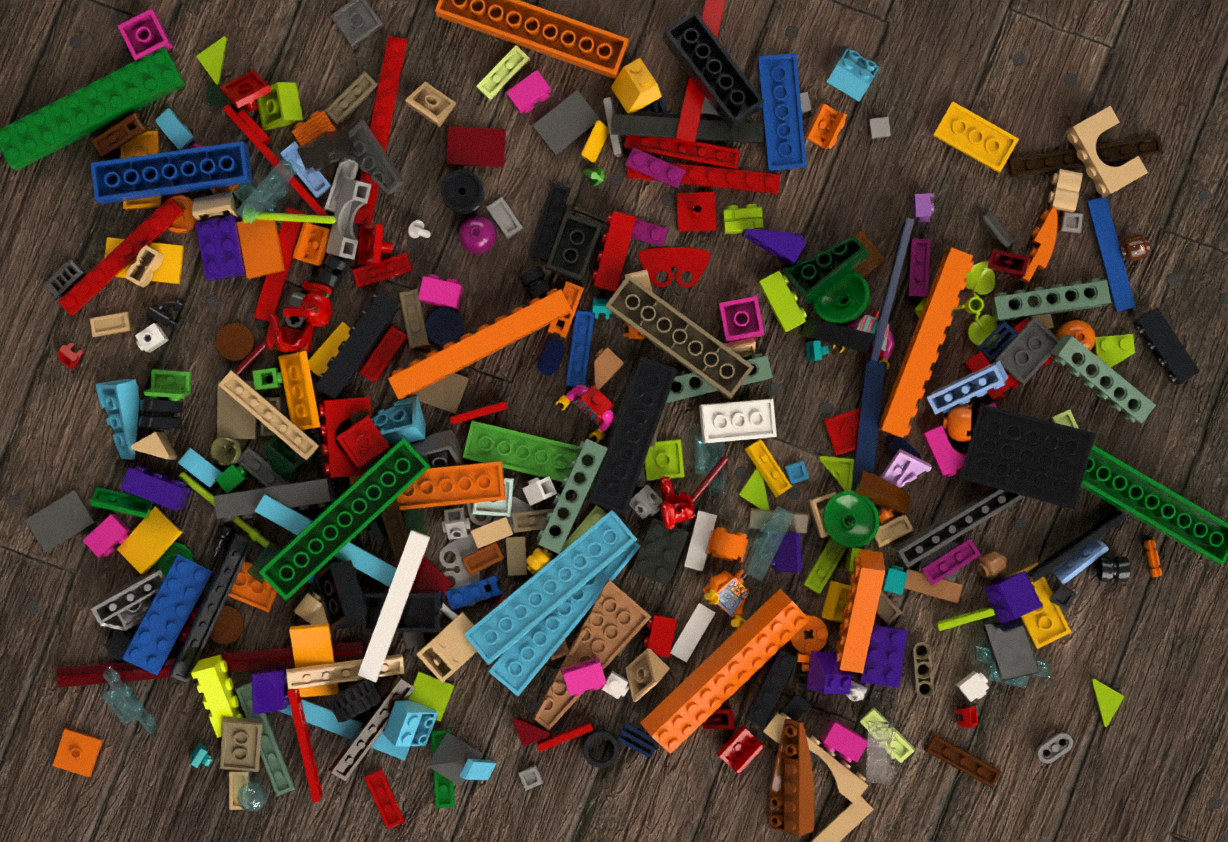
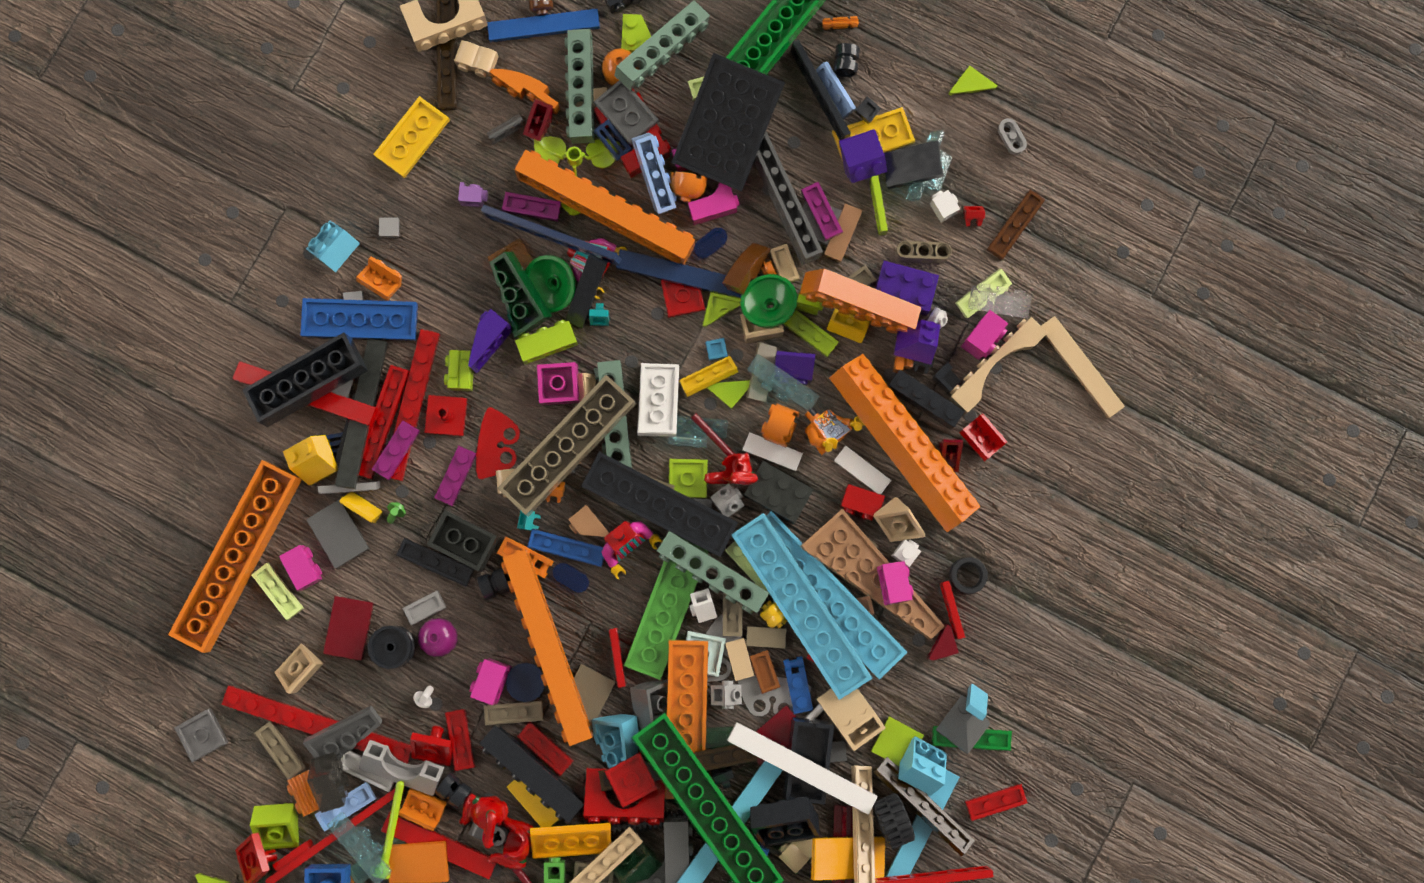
camera: 85 degrees left, 5 degrees down
(530, 777) = (989, 650): light grey tile -> none
(615, 250) = (472, 499): red brick -> none
(623, 733) = (972, 524): dark blue tile -> none
(792, 783) = (1021, 390): dark orange wedge -> none
(818, 640) = (880, 347): orange plate -> none
(894, 580) = (833, 264): teal brick -> none
(904, 468) = (725, 244): lavender wing -> none
(992, 565) = (829, 172): medium nougat head -> none
(1071, 222) = (507, 58): light grey tile -> none

